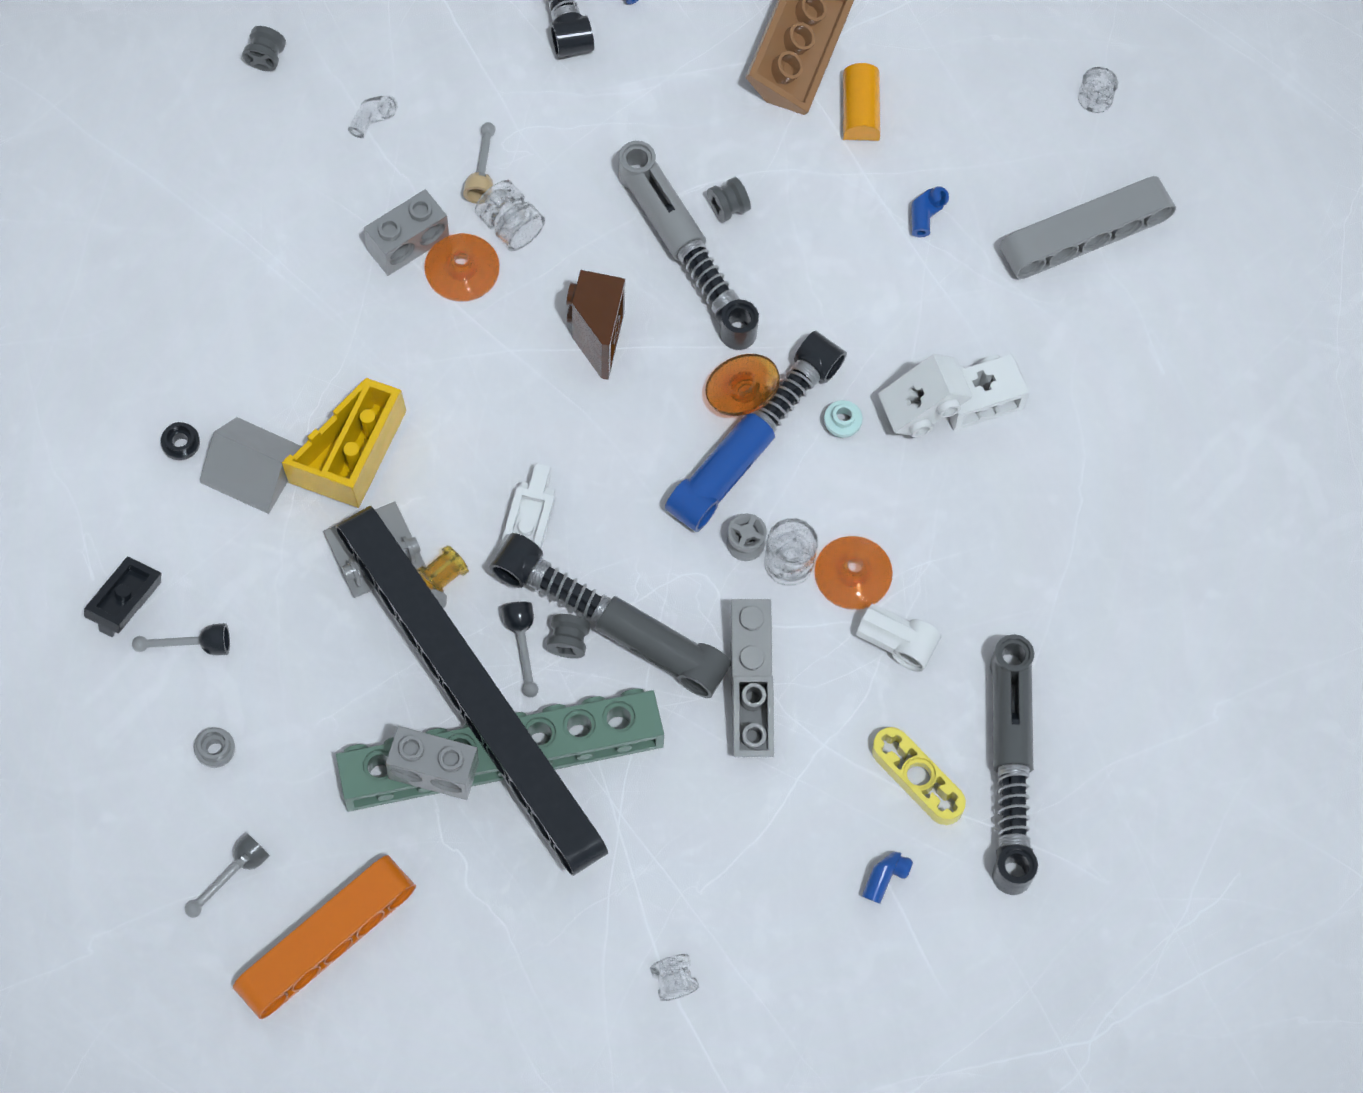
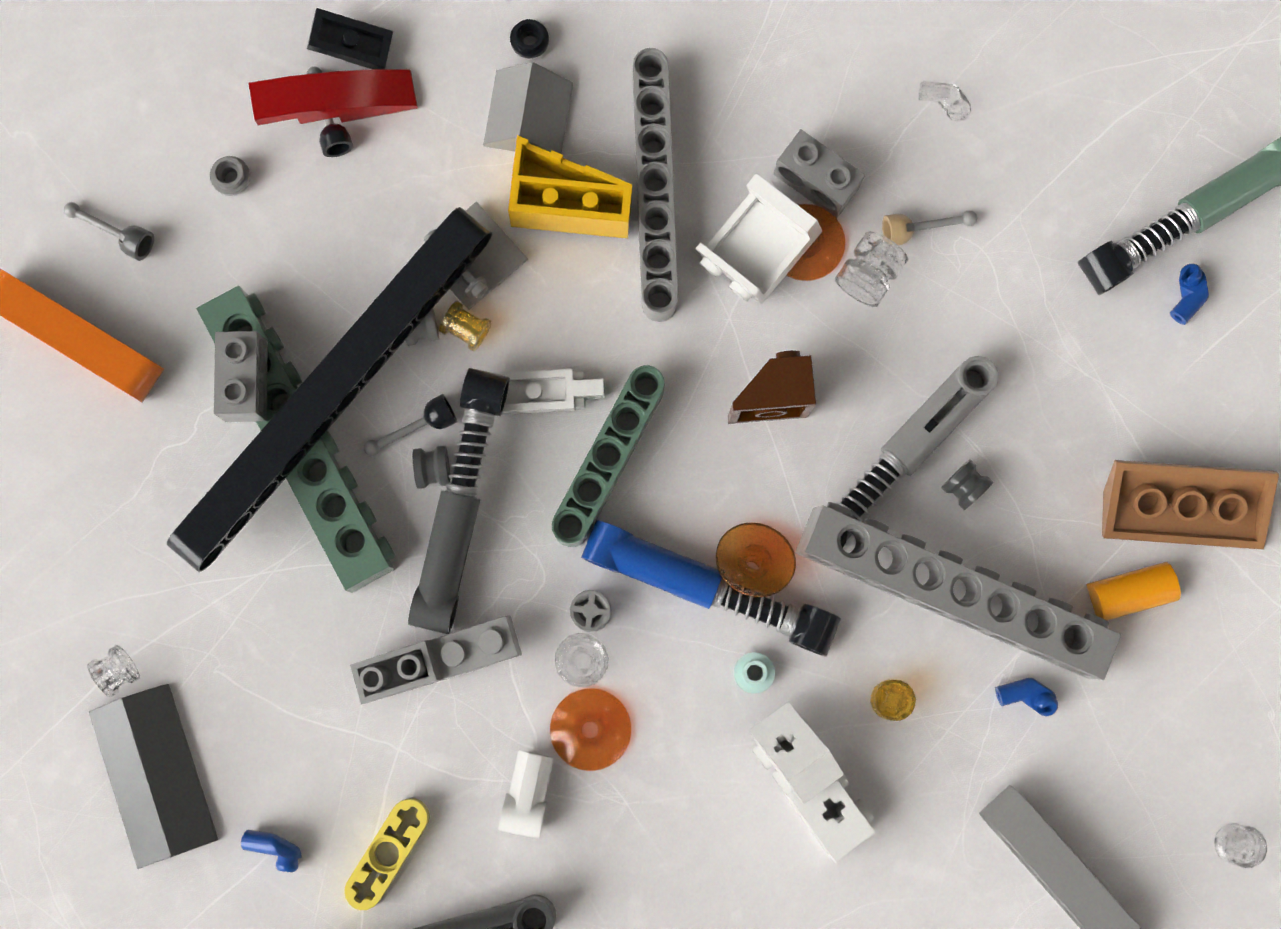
camera: 75 degrees right, 15 degrees up
(172, 627) = (332, 95): none -> red slope
(353, 357) = (659, 166): none -> light grey beam
(451, 296) = (760, 241): none -> white panel
(611, 497) = (614, 437): none -> sand green beam
(785, 974) = (153, 775): none -> dark grey slope
(820, 230) = (1093, 641): none -> light grey brick
(903, 305) = (899, 696): none -> clear yellow wheel

